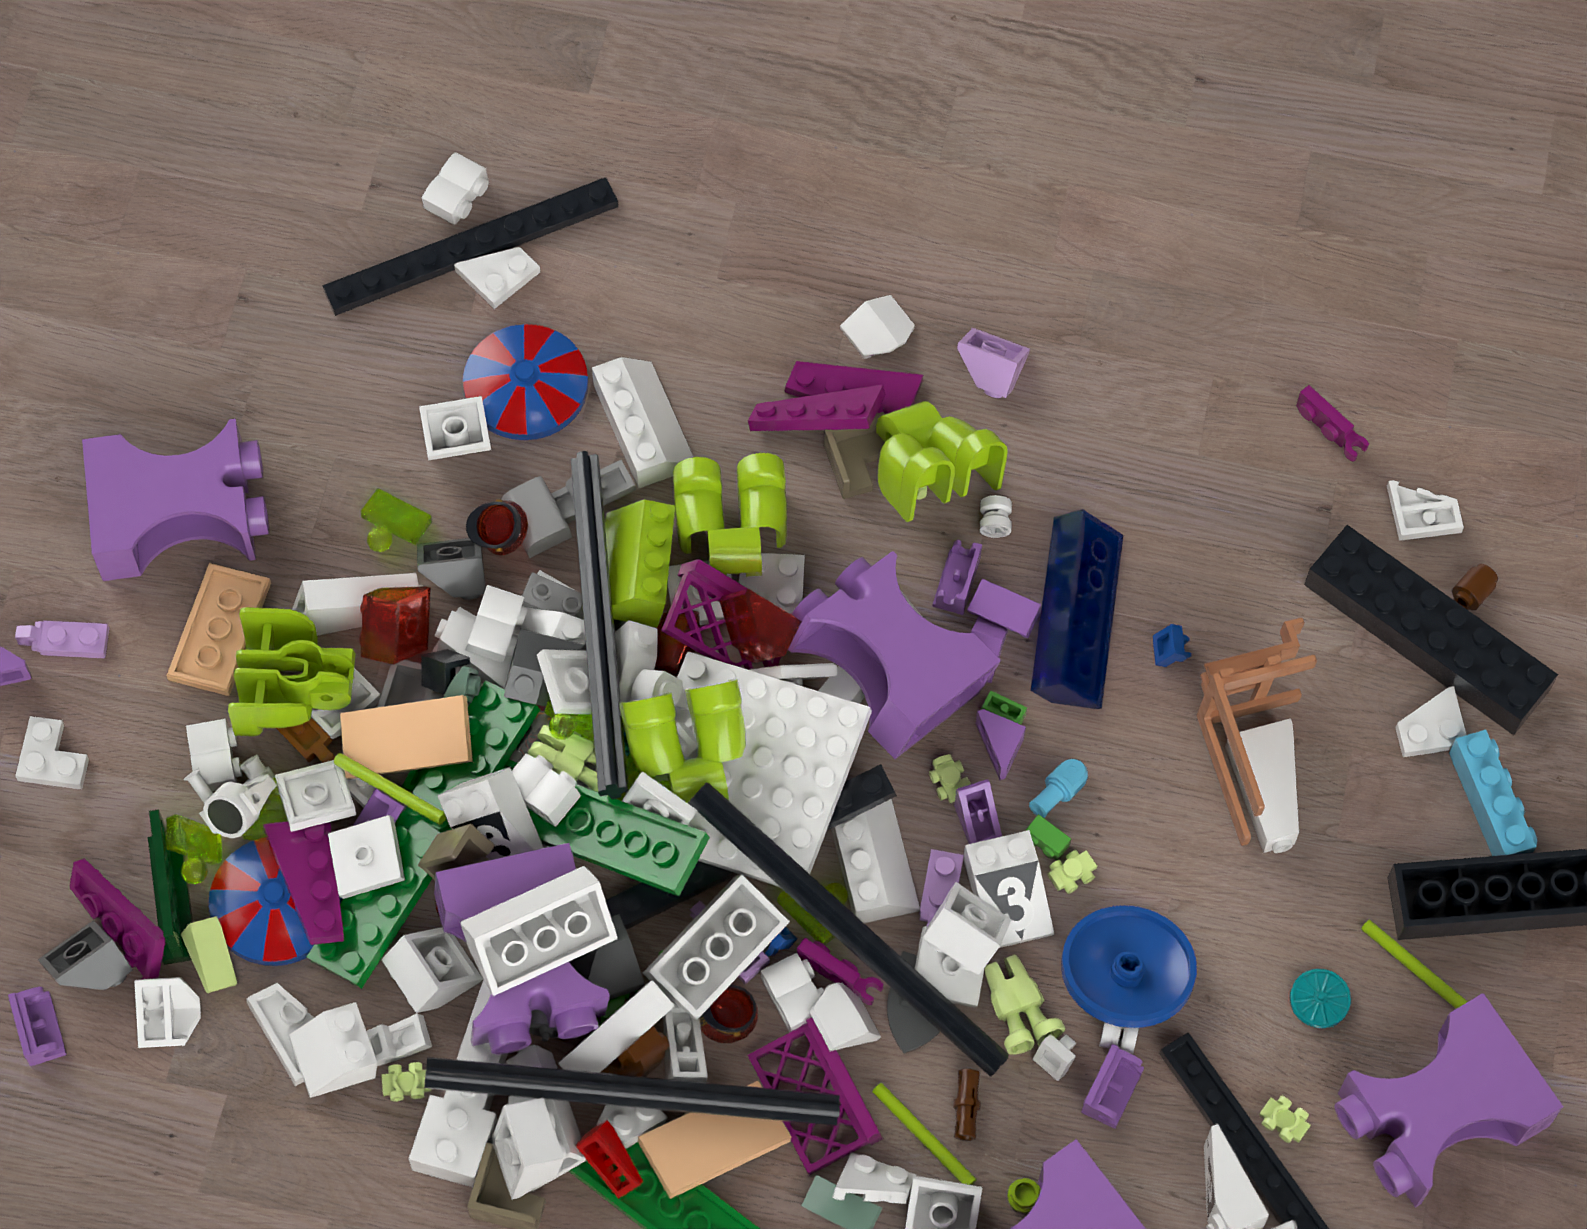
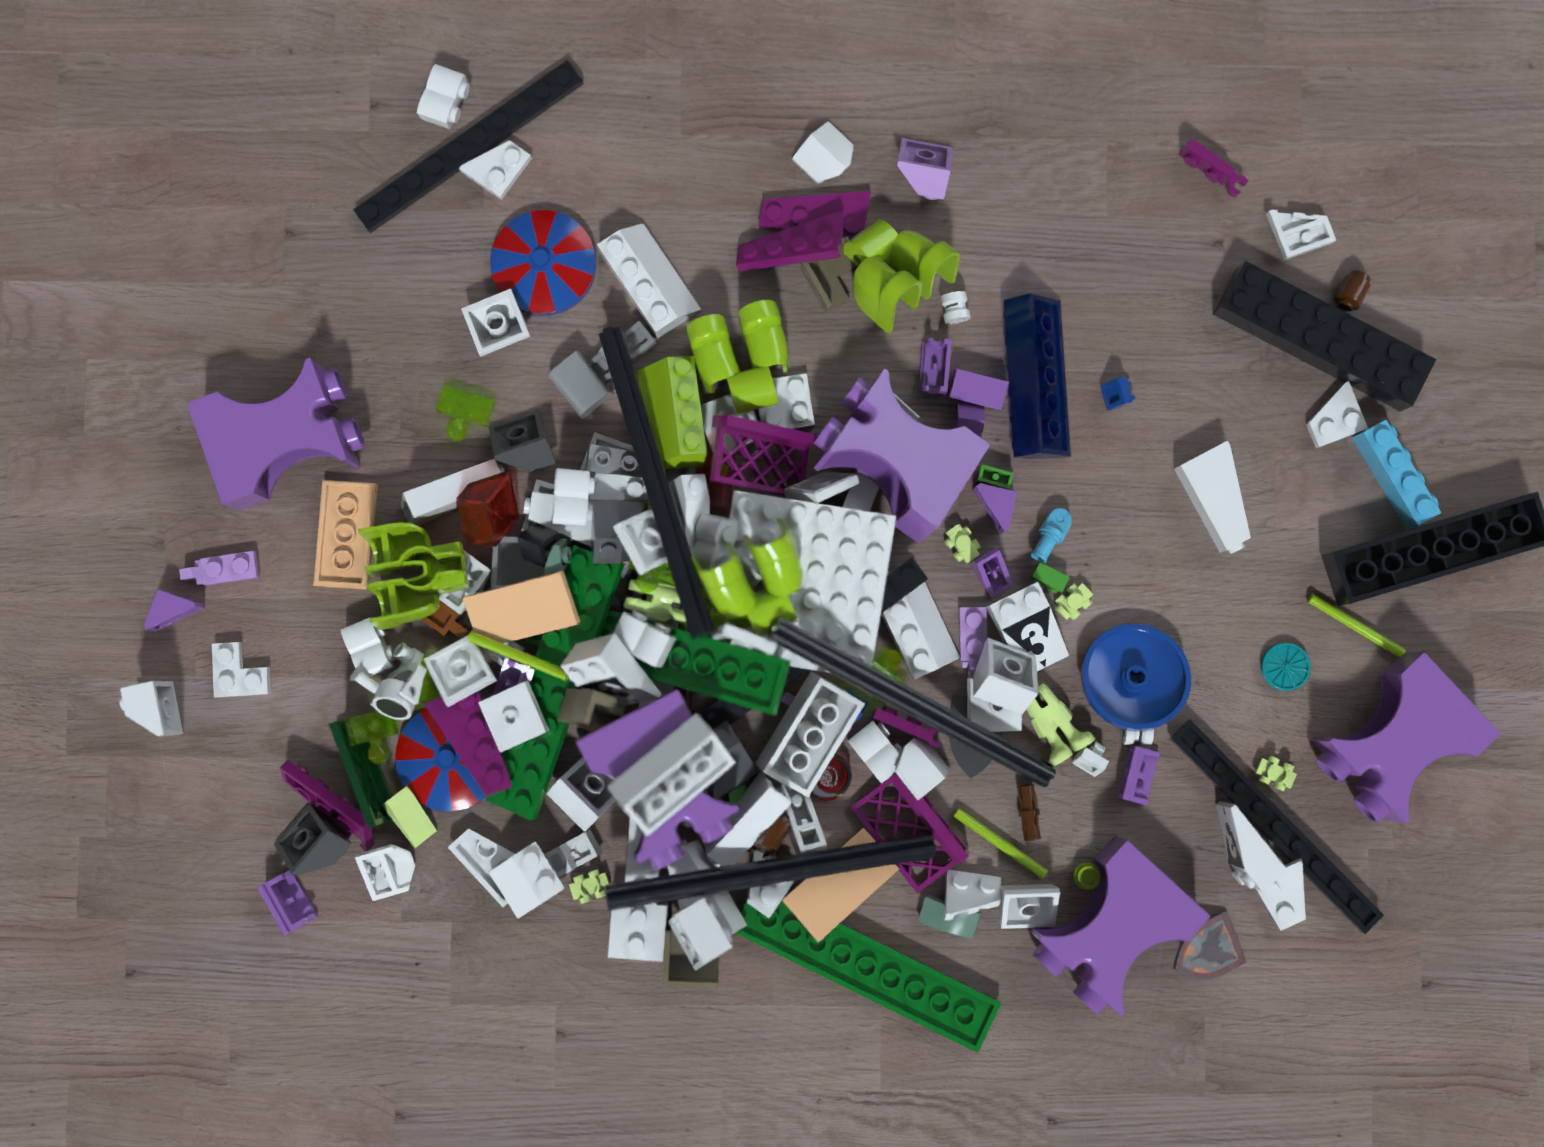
camera: 15 degrees left, 20 degrees up
(498, 526) = (551, 402): clear red piece -> none
(603, 1141) = (762, 923): red slope -> none
(757, 625) = (789, 460): clear red slope -> none
(1237, 674) = (1196, 419): nougat piece -> none

